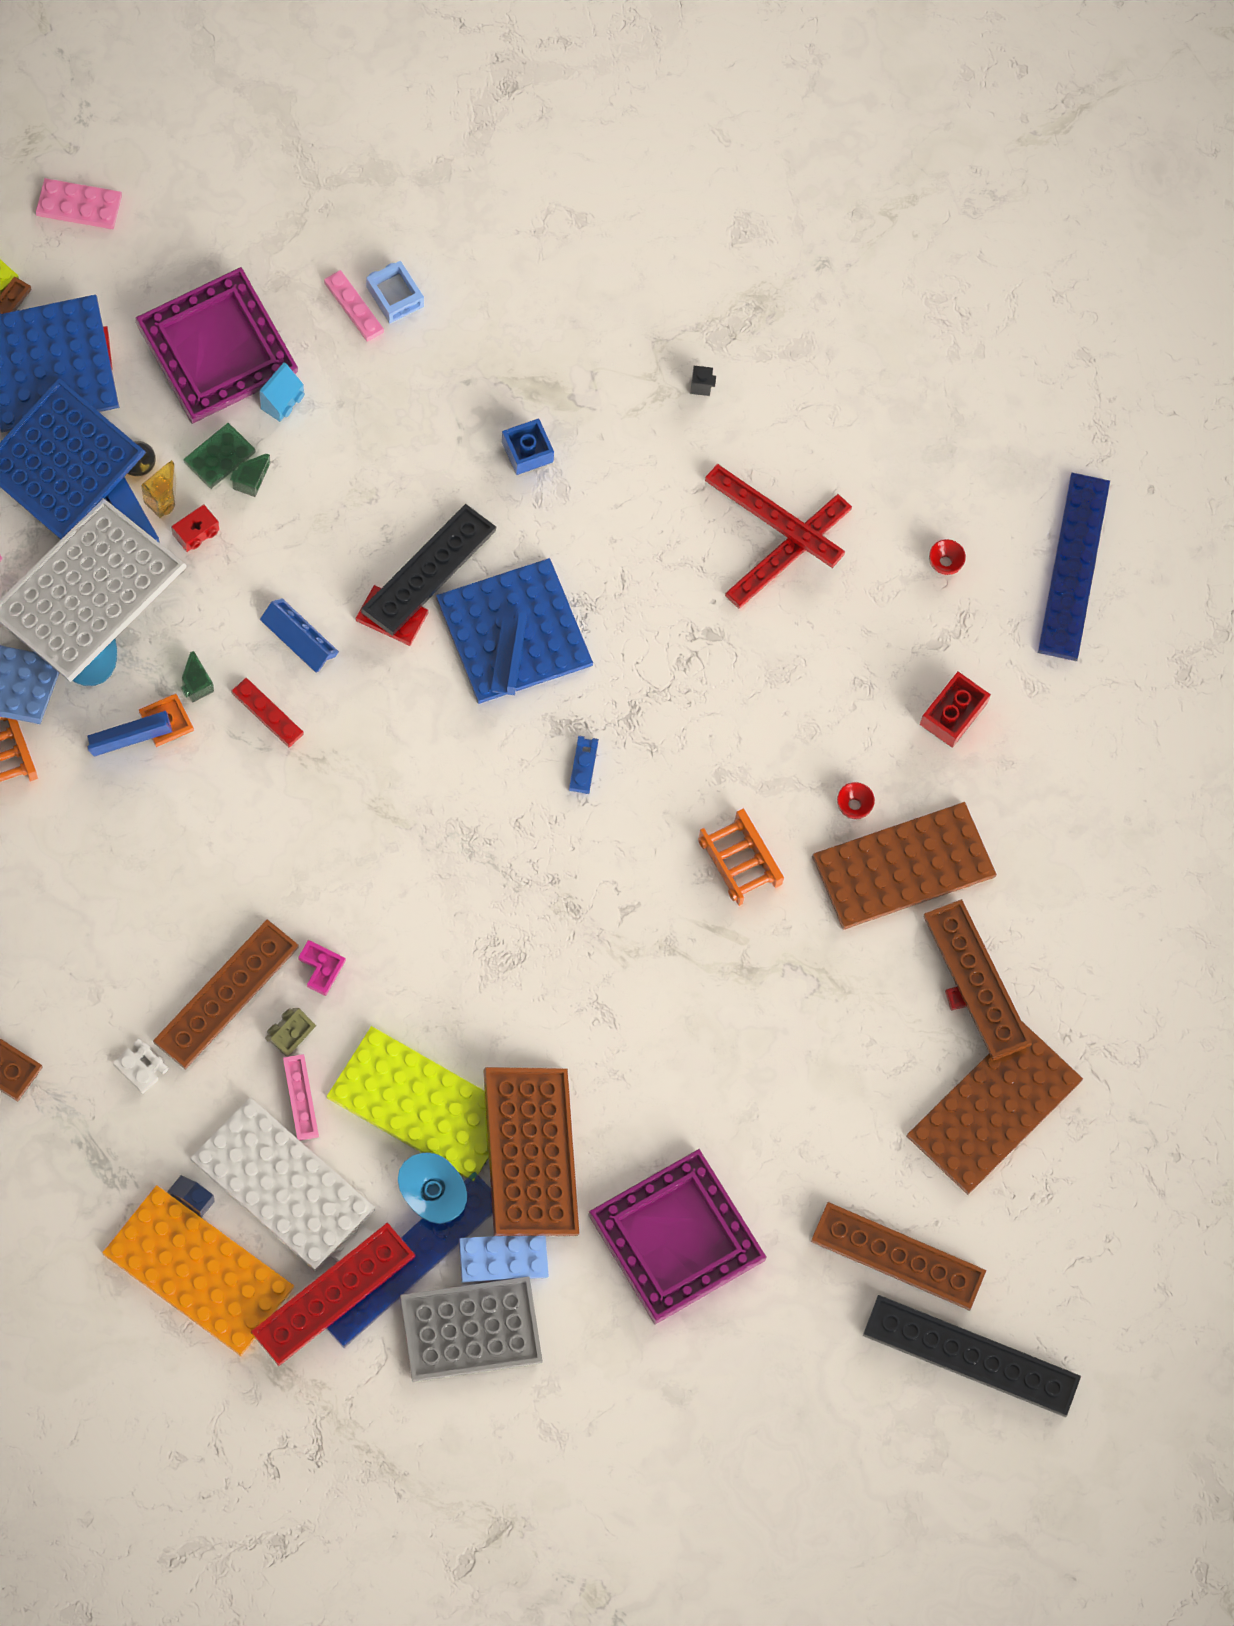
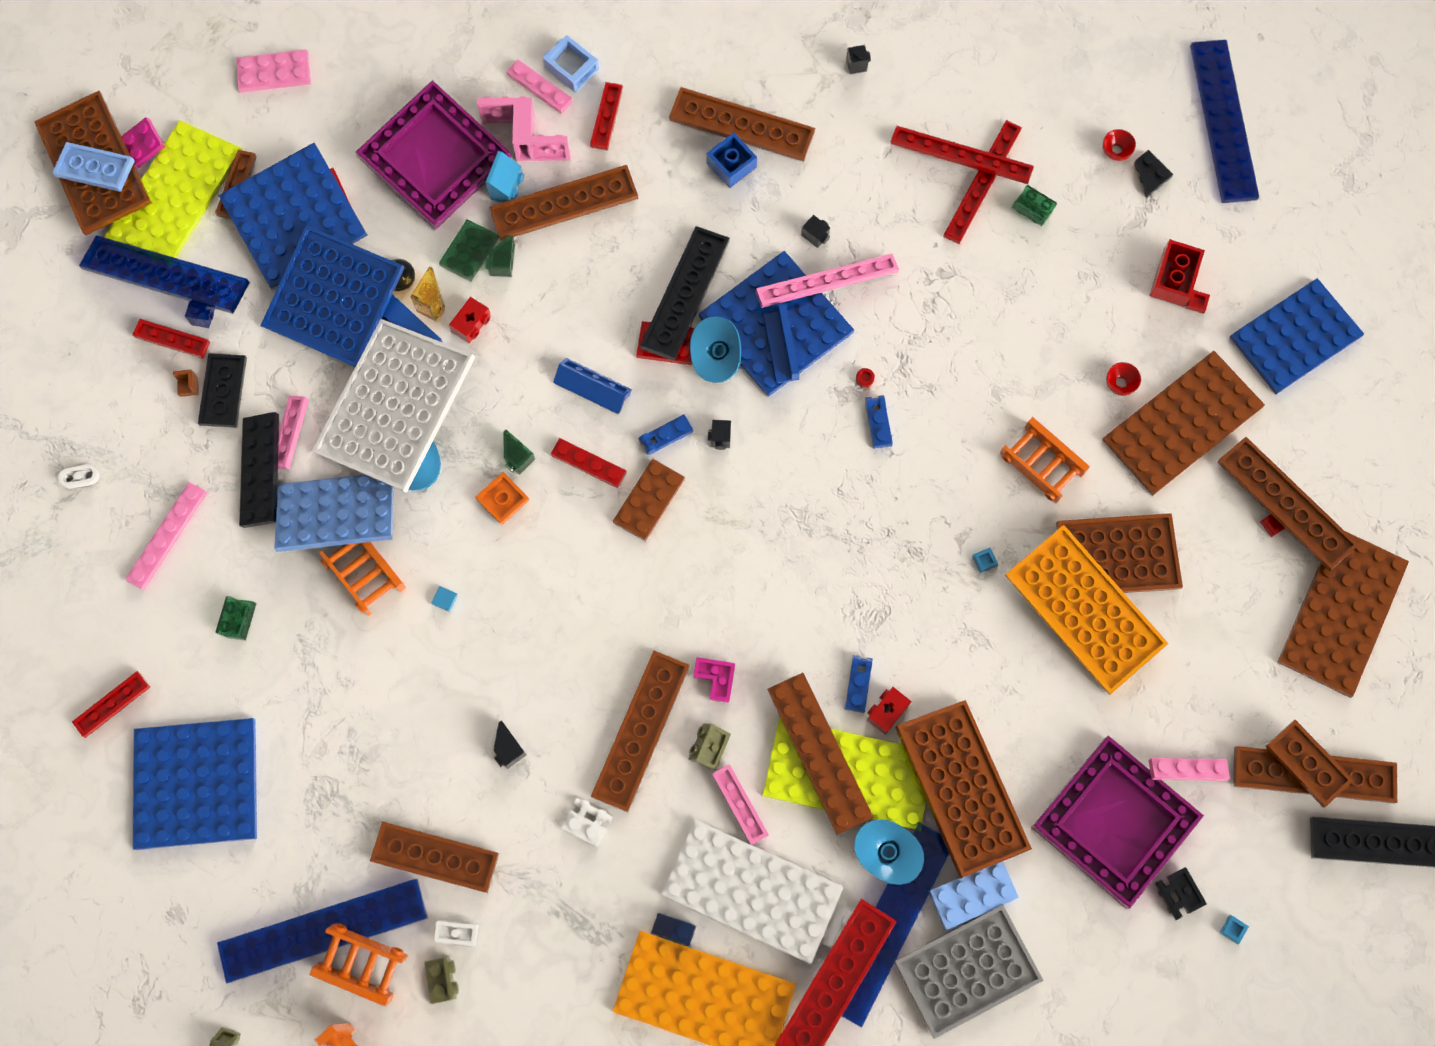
camera: 10 degrees left, 5 degrees up
(72, 802) = (444, 598): none -> dark azure tile
(85, 967) = (506, 747): none -> black slope
(129, 733) = (474, 521): blue panel -> none
(316, 769) = (648, 499): none -> dark orange plate
(317, 359) = (522, 115): none -> bright pink bracket
(336, 436) = (564, 202): none -> dark orange plate
(357, 708) = (666, 434): none -> blue plate
(398, 1072) = (820, 753): none -> dark orange plate
(413, 359) = (606, 116): none -> red plate
(413, 725) = (720, 434): none -> black brick
(438, 637) = (715, 349): none -> dark azure hat
(464, 1020) = (858, 684): none -> blue plate
(490, 1042) = (898, 705): none -> red brick
(555, 410) = (750, 125): none -> dark orange plate
(581, 602) = (826, 280): none -> bright pink plate
(586, 715) = (865, 377): none -> red tile
(590, 548) = (816, 231): none -> black brick
(641, 938) = (985, 560): none -> dark azure tile
(721, 1325) = (1185, 889): none -> black plate
(724, 1018) = (1086, 609): none -> light orange plate
(756, 1378) = (1234, 929): none -> dark azure tile
(769, 1208) = (1189, 769): none -> bright pink plate
(782, 976) = (1132, 550): none -> dark orange plate
(832, 593) = (1034, 205): none -> clear green bracket
(893, 1240) = (1309, 763): none -> dark orange plate
(967, 746) = (1198, 302): none -> red plate
(973, 597) = (1151, 172): none -> black wing
(1060, 814) = (1296, 336): none -> blue plate

